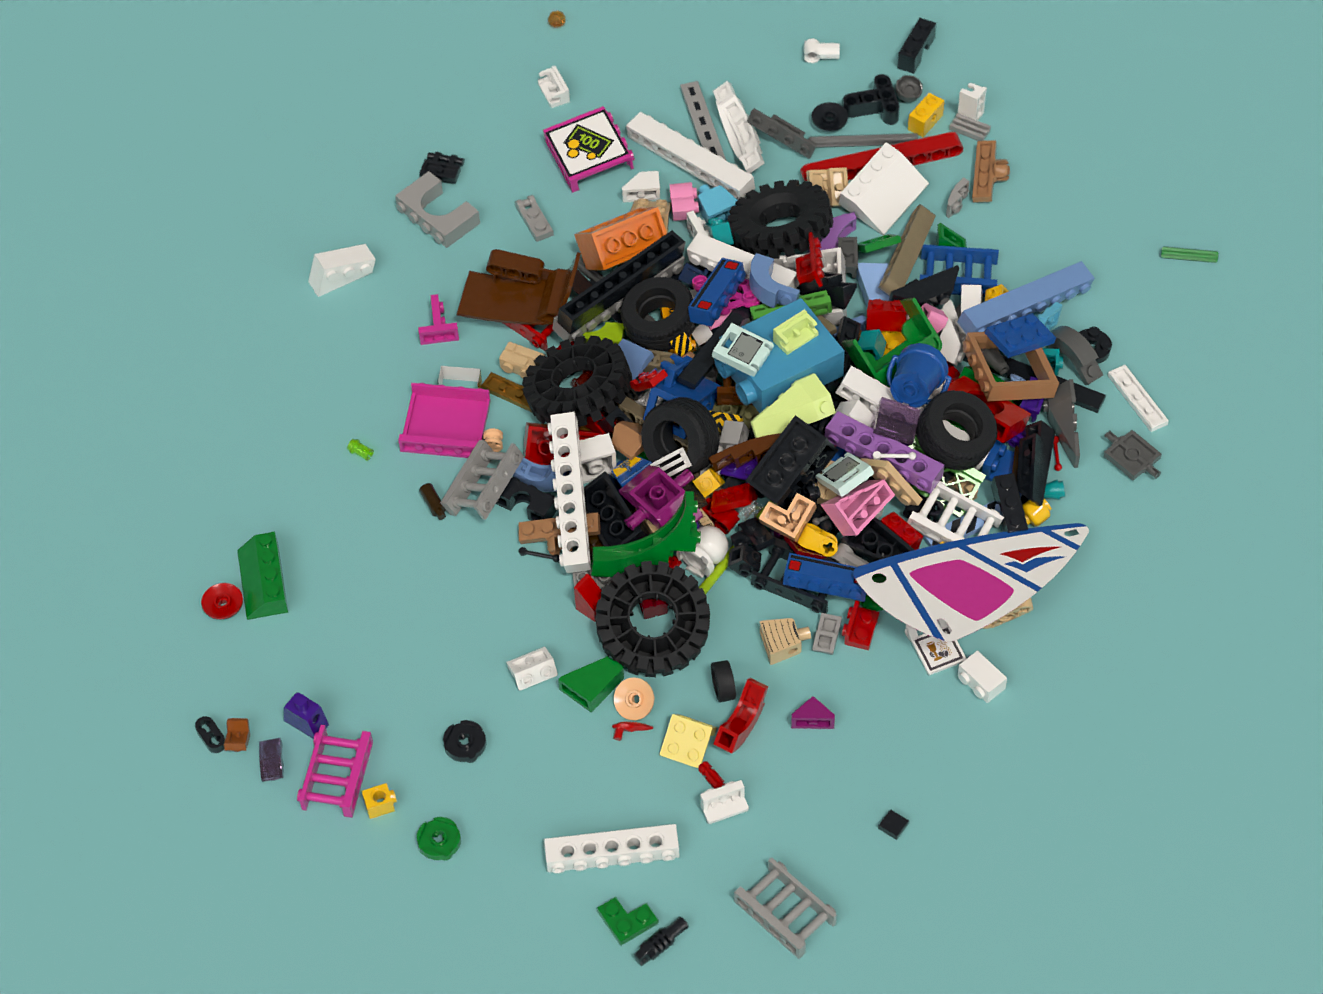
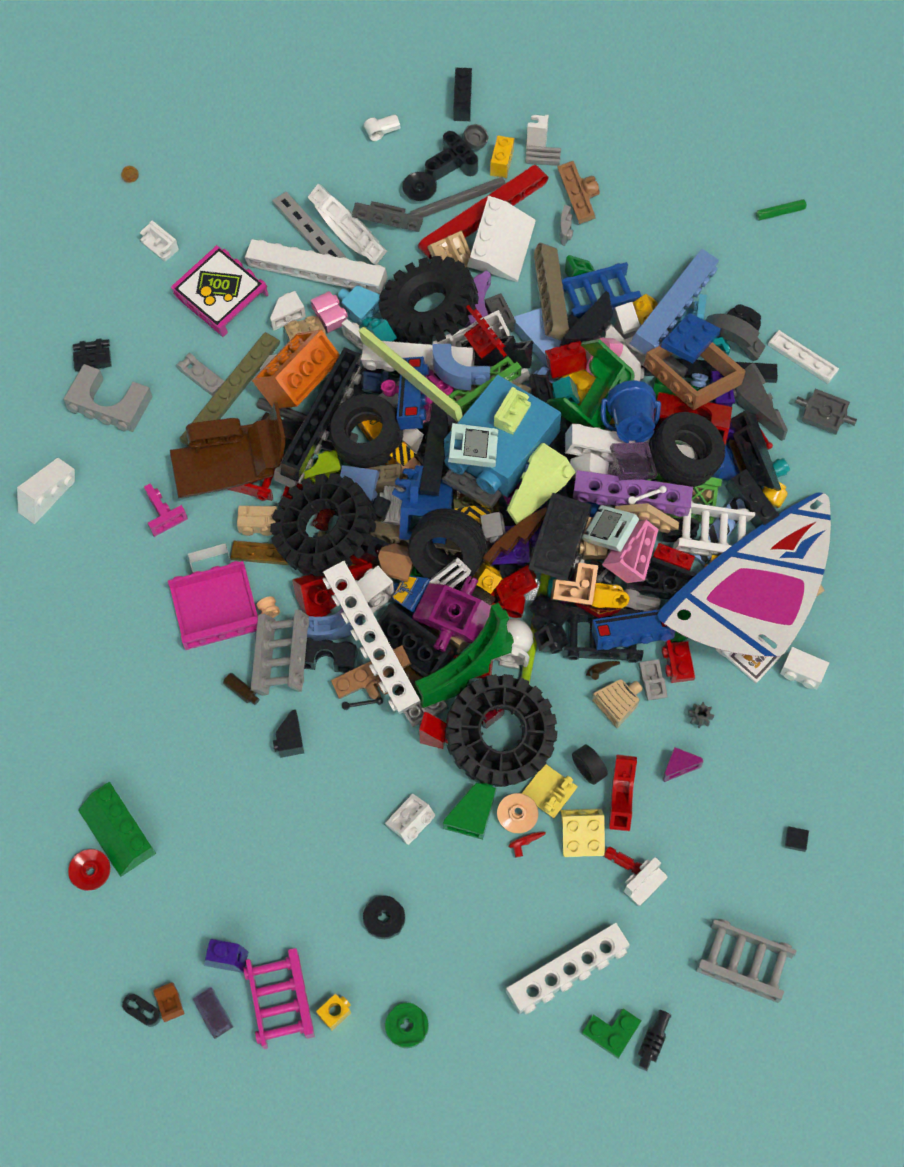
camera: 25 degrees left, 10 degrees up
(358, 448) = (148, 663): clear neon green pin -> none
(456, 556) = (289, 737): none -> black slope
(565, 236) = (236, 381): none -> olive plate
(648, 380) = (394, 502): red hinge -> none
(676, 693) = (550, 790): none -> light yellow hinge
(720, 271) = (411, 374): none -> yellowish green tile
(726, 390) = (468, 486): none -> dark grey tile
(782, 606) = (600, 668): none -> dark brown bar
(812, 492) = (586, 555): black plate -> none
(856, 680) = (701, 720): none -> dark grey gear
(878, 243) = (522, 291): green tile -> none

